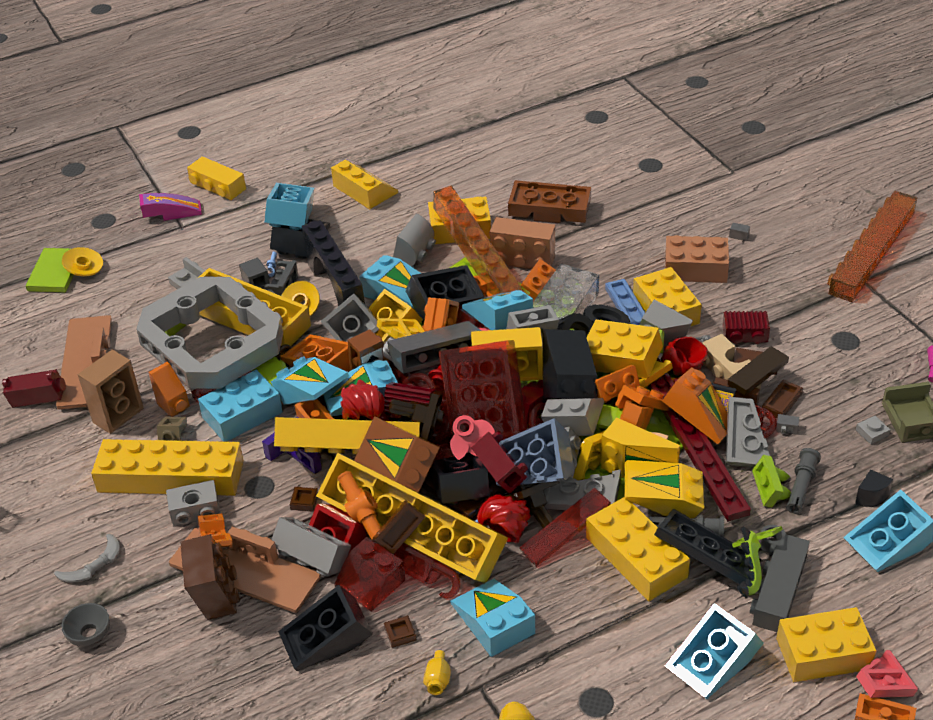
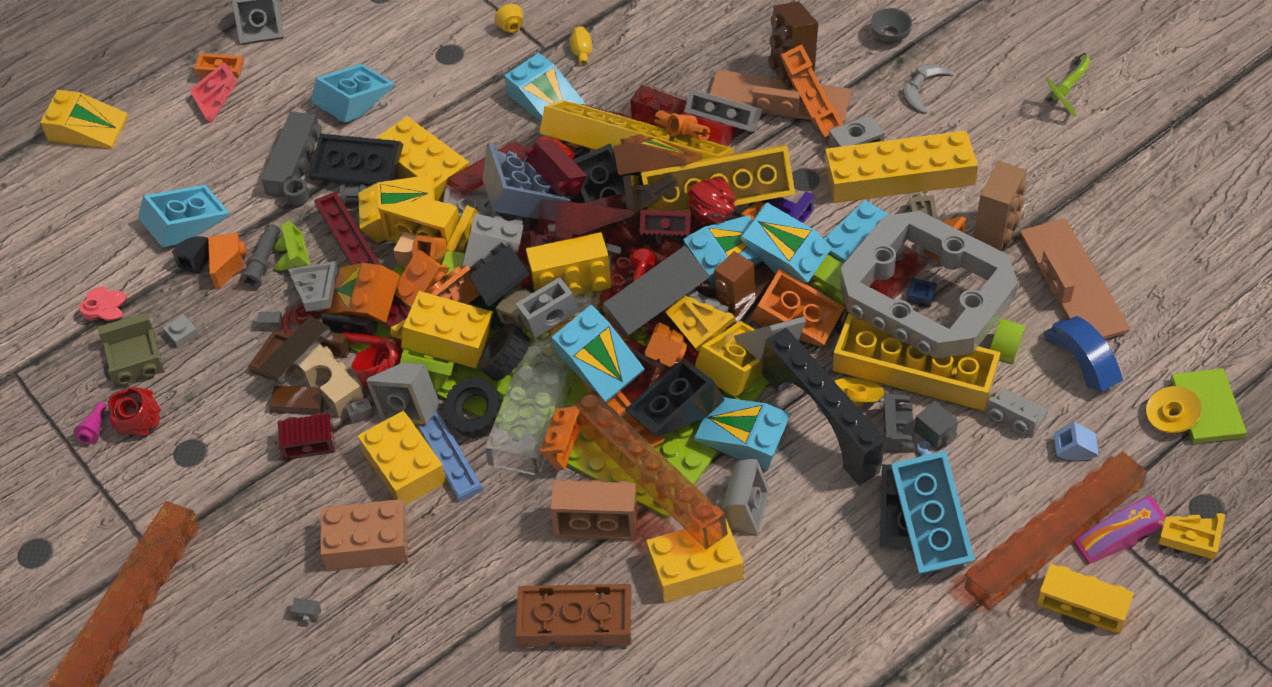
camera: 170 degrees right, 10 degrees up
(33, 388) = (1099, 223): dark red brick -> none
(118, 304) = (1089, 349): none -> blue arch
(121, 201) = (1193, 534): none -> yellow wing
(163, 255) = (1076, 443): none -> light blue brick
(203, 213) = (1054, 530): none -> clear orange brick
(325, 629) = (682, 56): black slope -> none
(361, 184) = (859, 622): yellow slope -> none
(399, 527) = (639, 112): reddish brown tile -> none
(400, 631) = (622, 73): reddish brown tile -> none
(463, 441) = (597, 196): coral plate -> none
(751, 545) = (313, 158): lime piece -> none
(825, 644) = (257, 107): yellow brick -> none
(839, 482) = (225, 257): none -> orange slope
(898, 355) = (133, 411): none -> red hair

